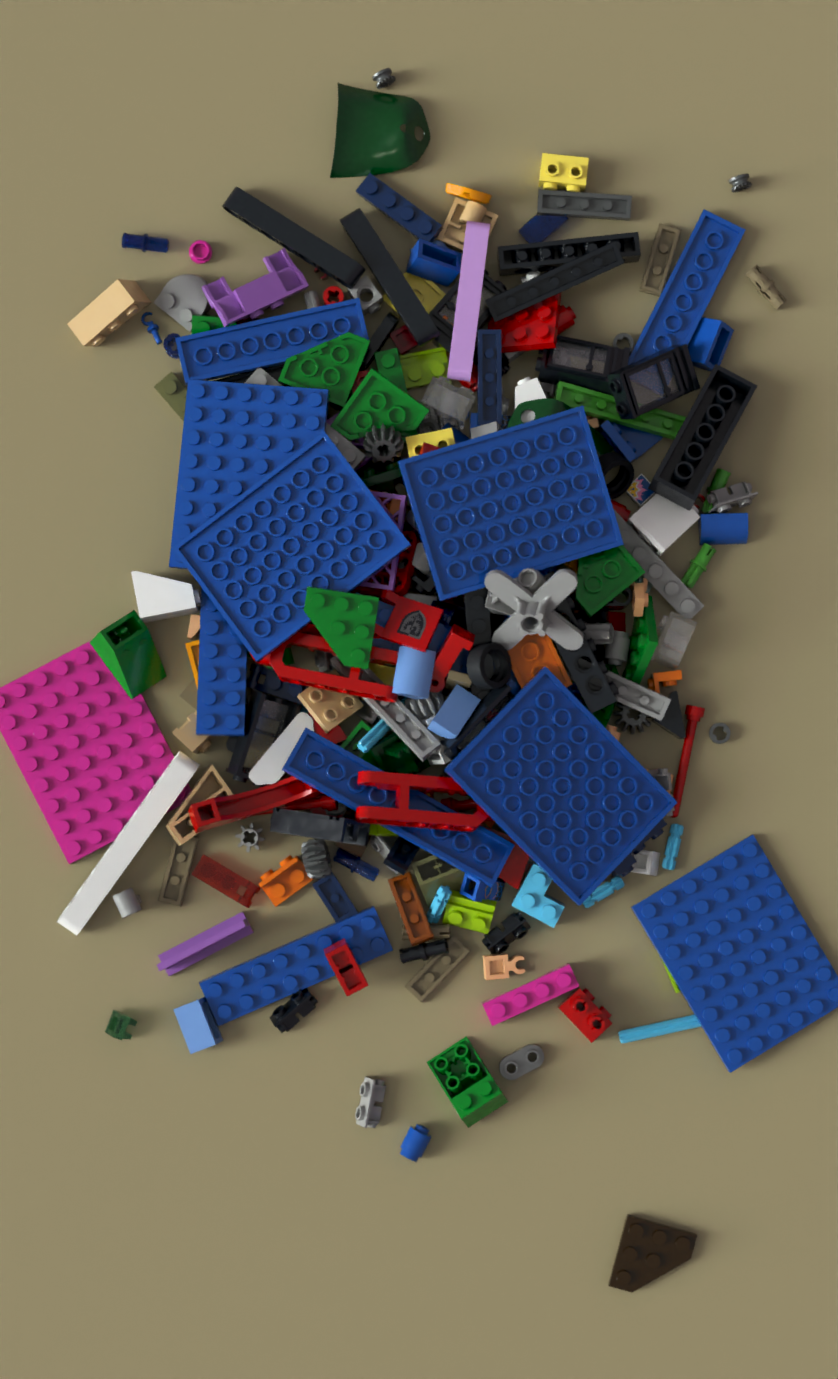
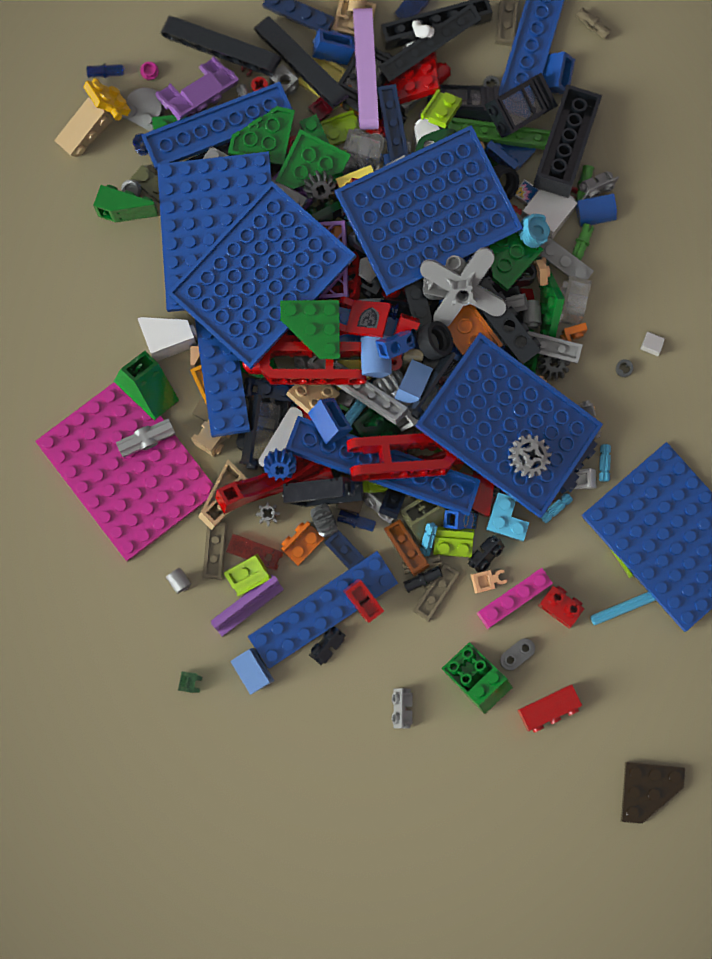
camera: 15 degrees left, 5 degrees down
(117, 719) = (145, 438): none -> light grey piece
(128, 843) = (170, 535): white beam -> none
(136, 423) = (122, 206): none -> green slope
(141, 282) = (107, 98): none -> yellow plate
(152, 400) = (133, 186): none -> light grey tile
(153, 328) = (121, 134): blue hand -> none
(212, 908) = (247, 575): none -> lime plate
(273, 785) = (280, 464): none -> blue gear
(343, 741) = (329, 420): none -> blue brick
(379, 338) = (301, 111): black beam -> none
(415, 1142) = (444, 733): blue brick -> none
(439, 665) = (395, 344): none -> blue leg
(546, 266) = (422, 30): none -> white arm
(548, 1135) = (550, 708): none -> red brick
(552, 371) = (441, 108): none -> lime plate
(572, 837) = (537, 452): none -> light grey gear
(638, 548) = (534, 231): none -> medium azure hair
(672, 719) = (586, 364): black slope -> none
(694, 715) = (601, 357): red piece -> none
(760, 708) = (652, 344): none -> white slope

